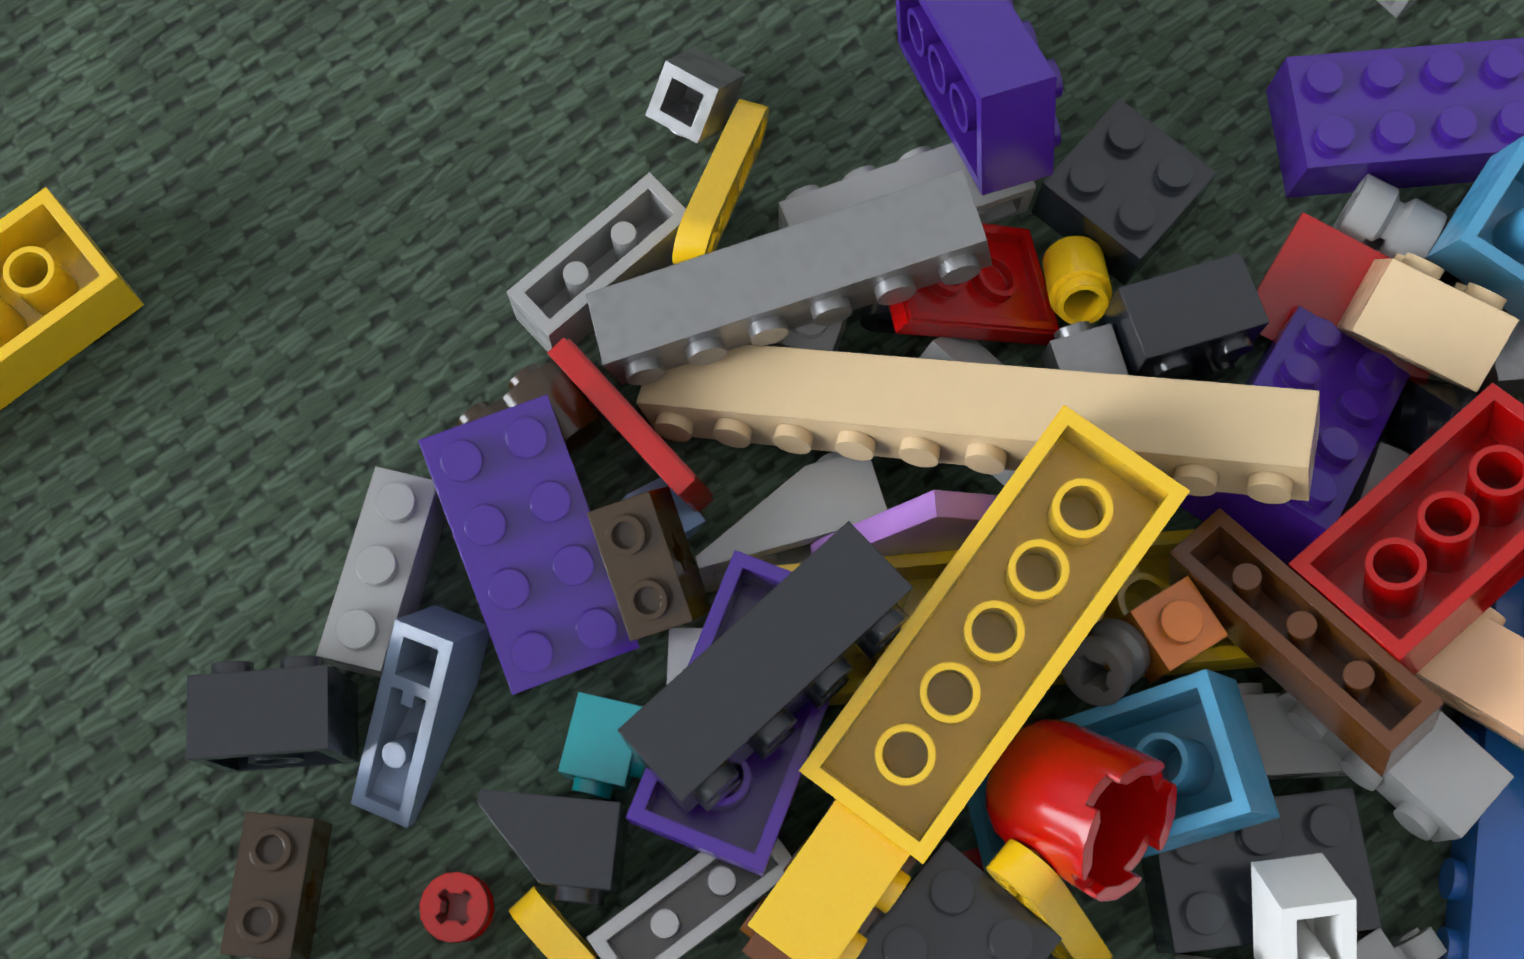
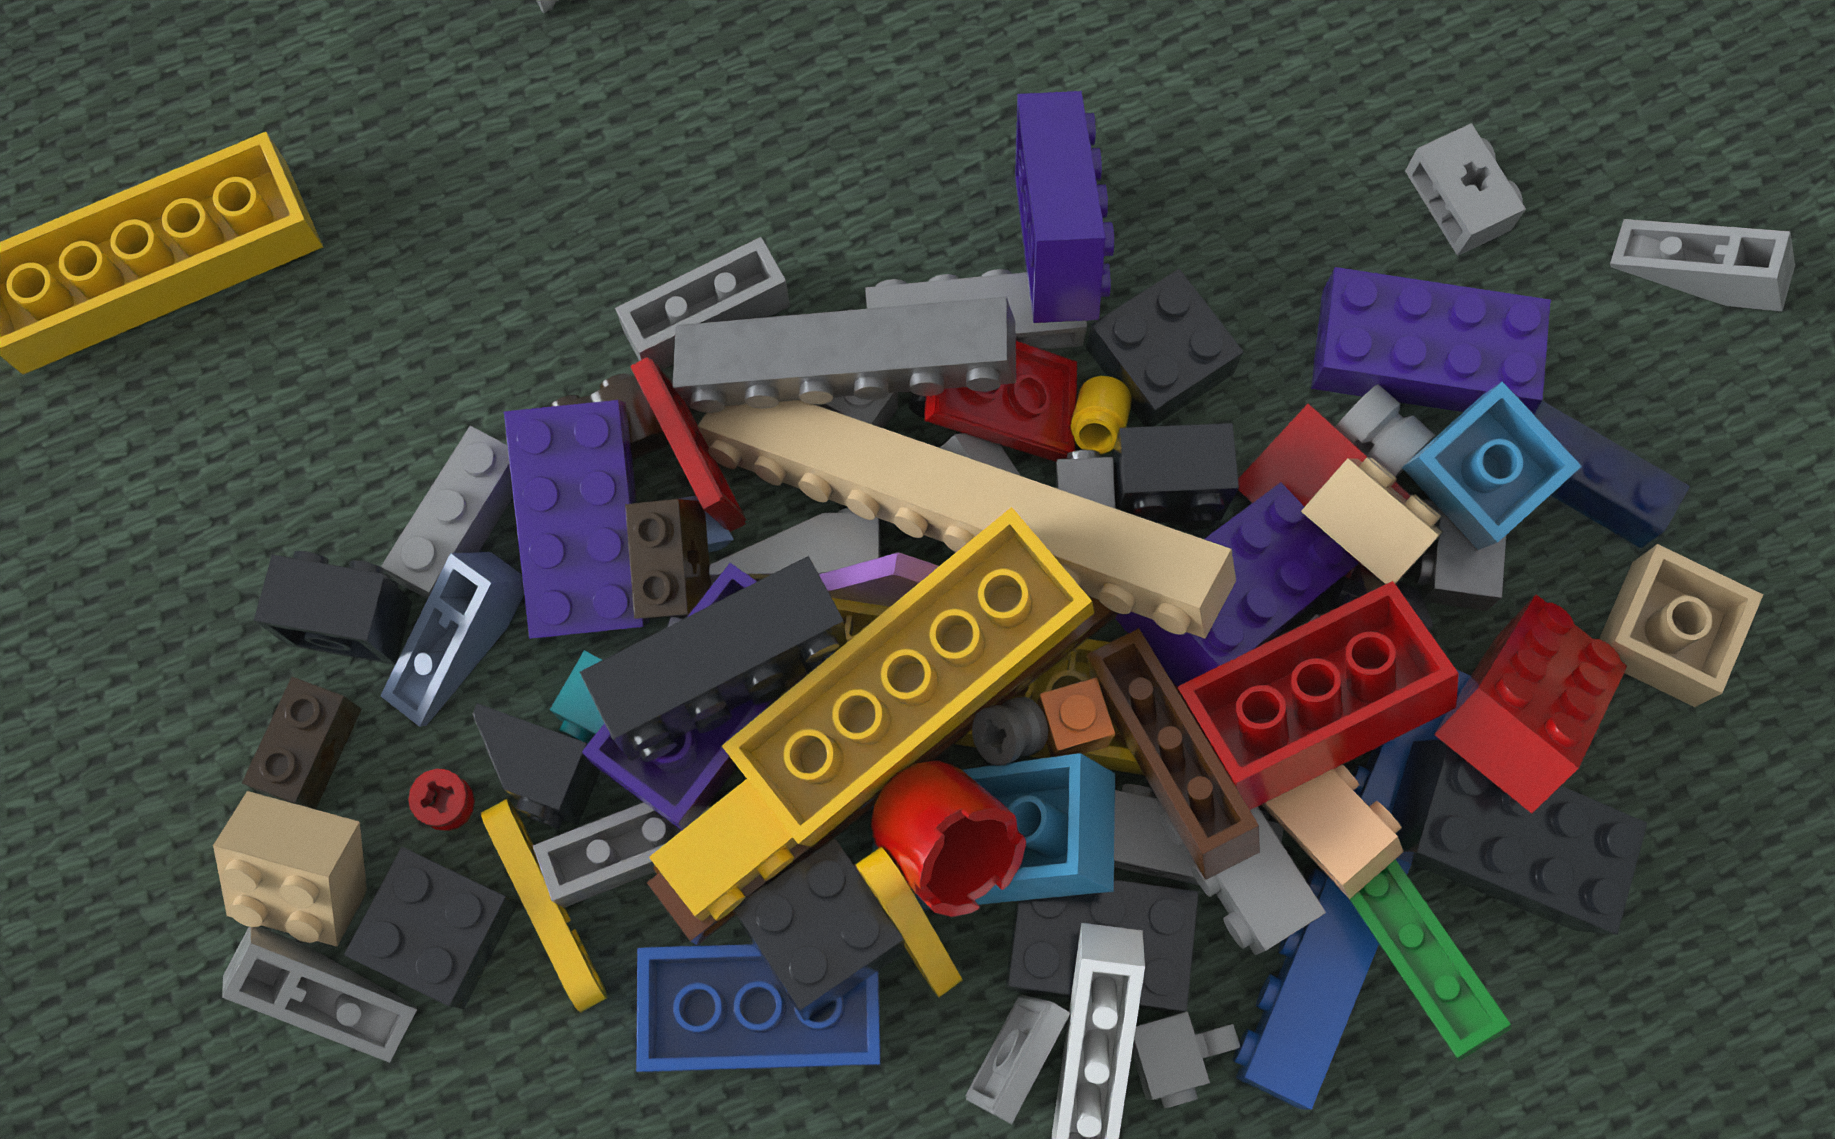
camera: 15 degrees right, 0 degrees up
(695, 95) = (823, 179): flat silver brick -> none
(721, 182) = (821, 258): yellow beam -> none

